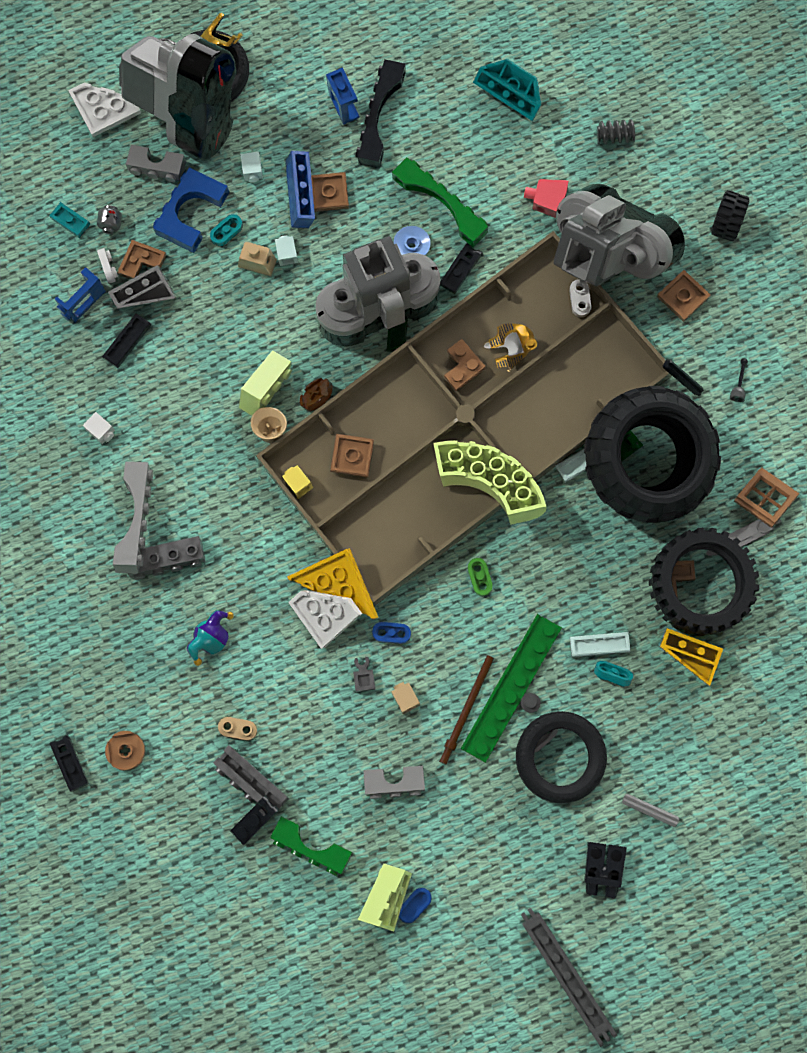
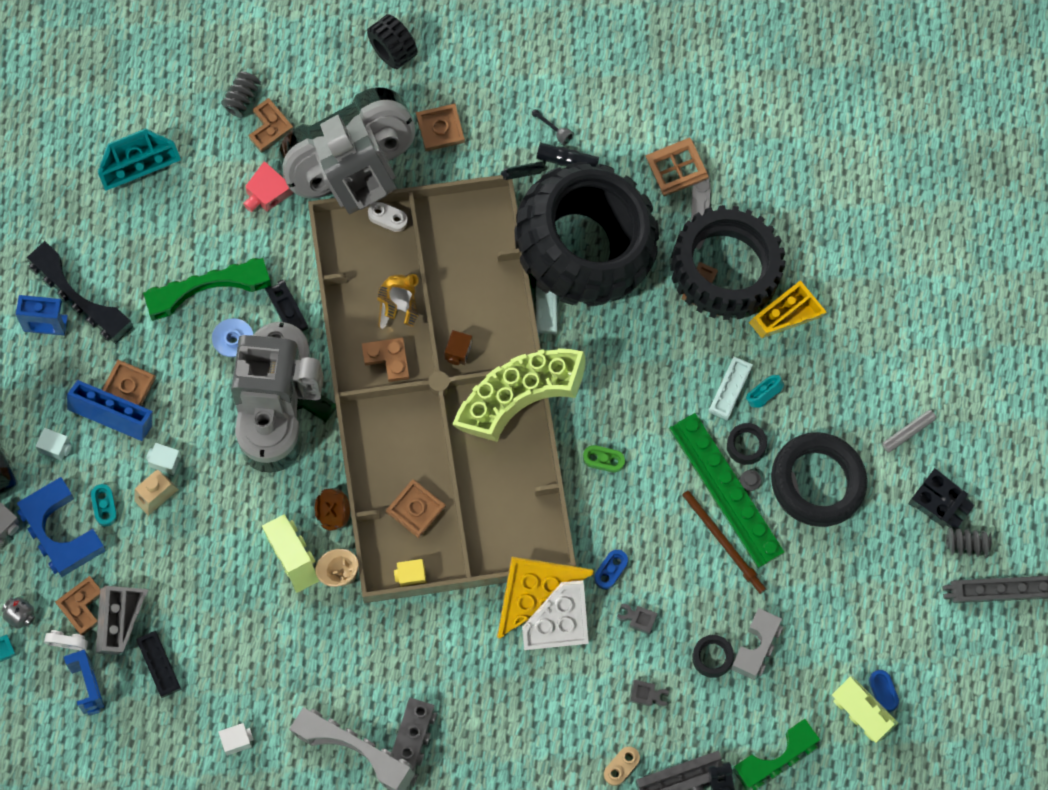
camera: 70 degrees left, 5 degrees down
(209, 636) = (515, 742): piece -> none
(304, 714) = (644, 694): none -> flat silver plate
(350, 751) = (724, 644): none -> black tyre
(405, 697) = (681, 590): tan brick -> none
(501, 412) = (458, 348): none -> reddish brown brick
(559, 668) = (744, 428): none -> black tyre
(579, 910) = (968, 542): none -> dark grey piece
(603, 173) = (274, 125): none -> medium nougat plate
(719, 407) = (564, 156): none -> black axle

